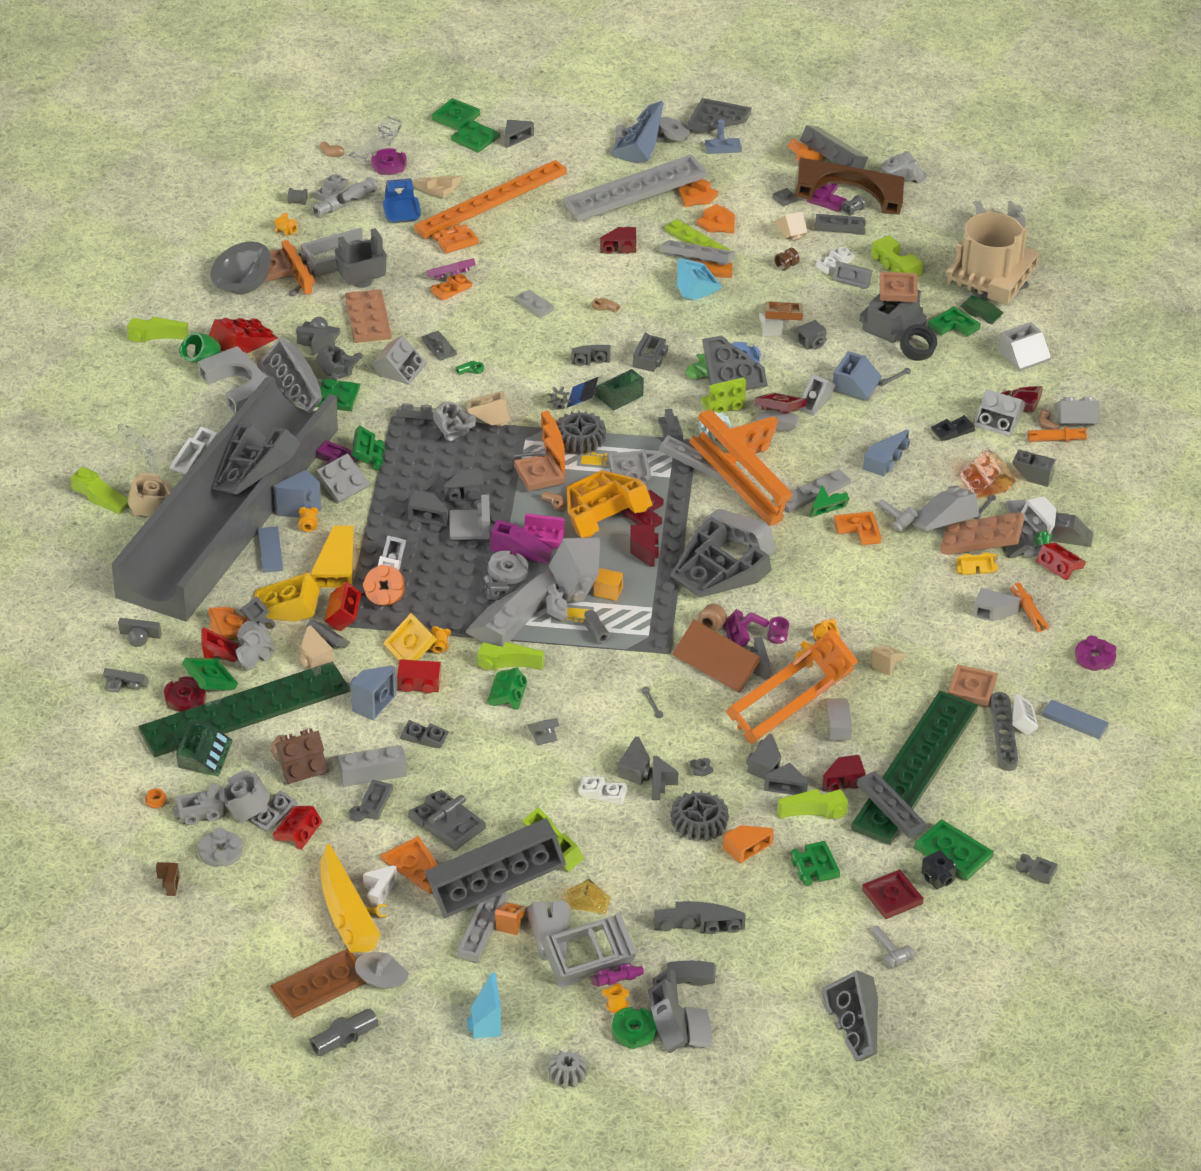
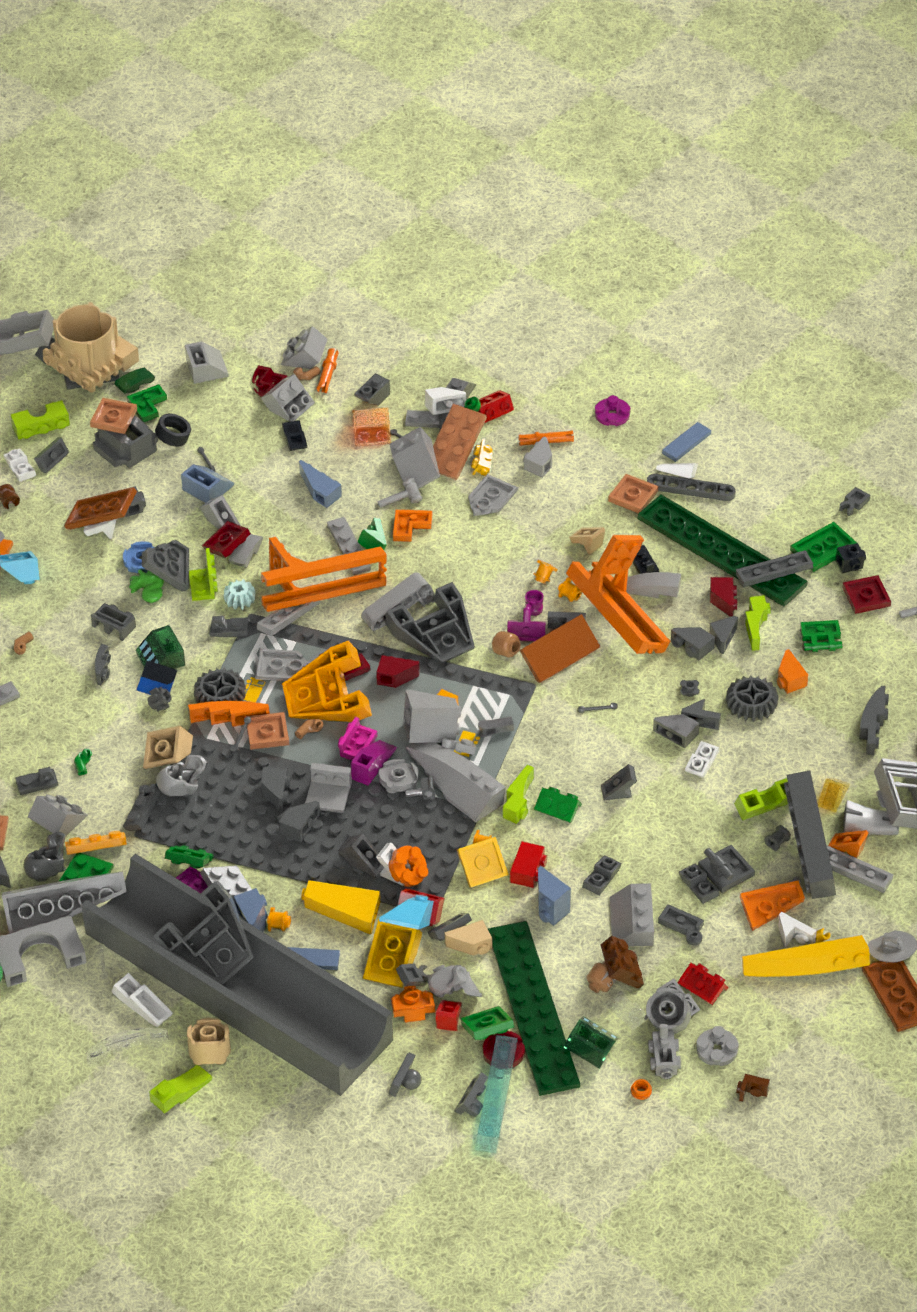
camera: 75 degrees left, 5 degrees up
(128, 694) = (496, 1094): none -> clear light blue tile
(316, 592) = (412, 913): none -> medium azure slope
(372, 391) = (95, 842): none -> light orange plate
(875, 708) = (644, 562): none -> black plate
(926, 580) = (490, 495): none -> light grey tile

